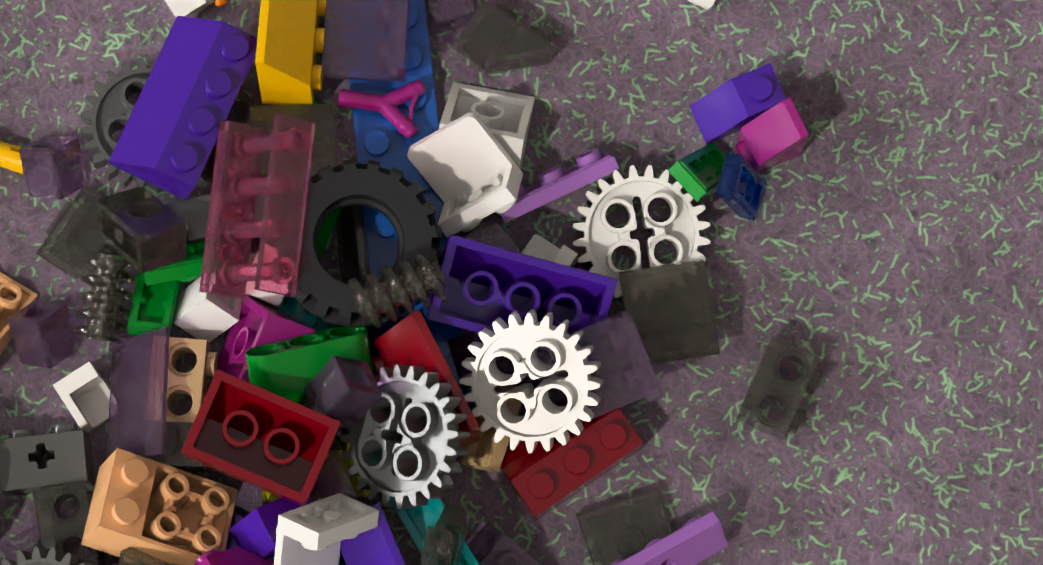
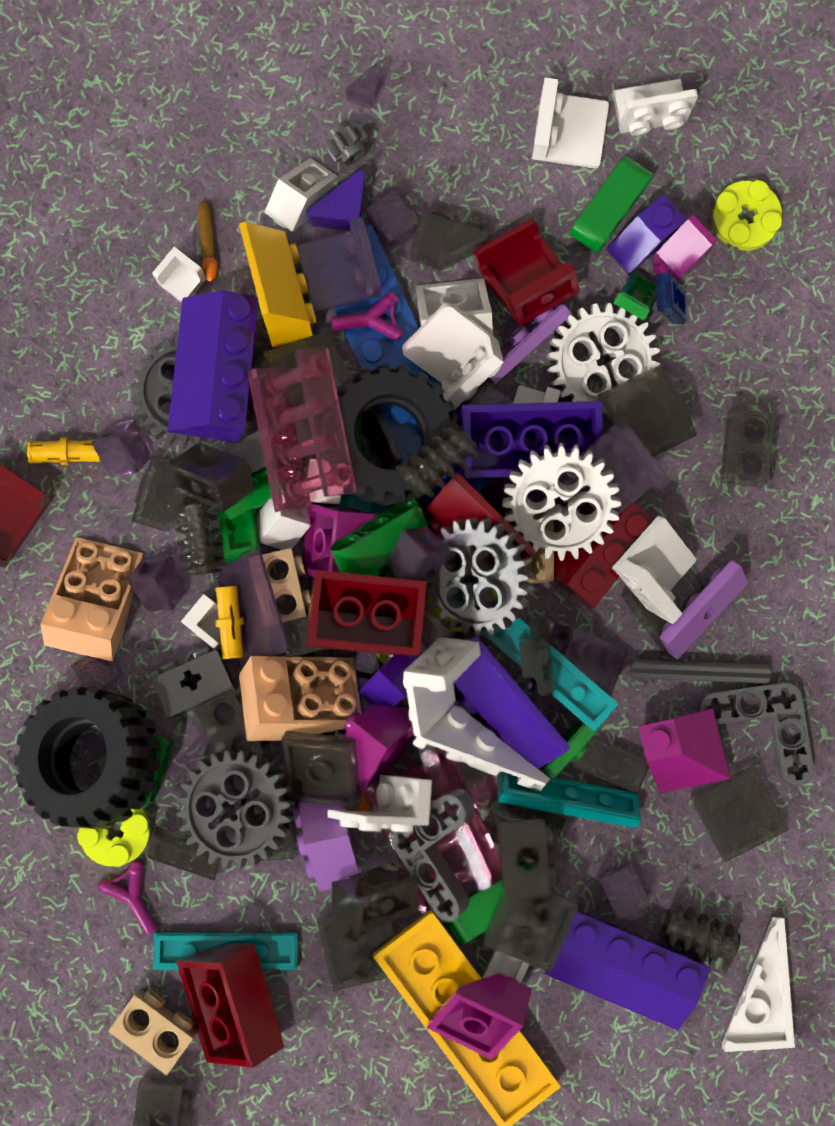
camera: 20 degrees left, 5 degrees up
(108, 403) = (229, 622): none -> yellow pin
(582, 105) = (525, 272): none -> dark red panel
(621, 491) = (655, 567): none -> white bracket
(710, 56) = (611, 204): none -> green beam
(850, 133) = (756, 198): none -> neon yellow plate

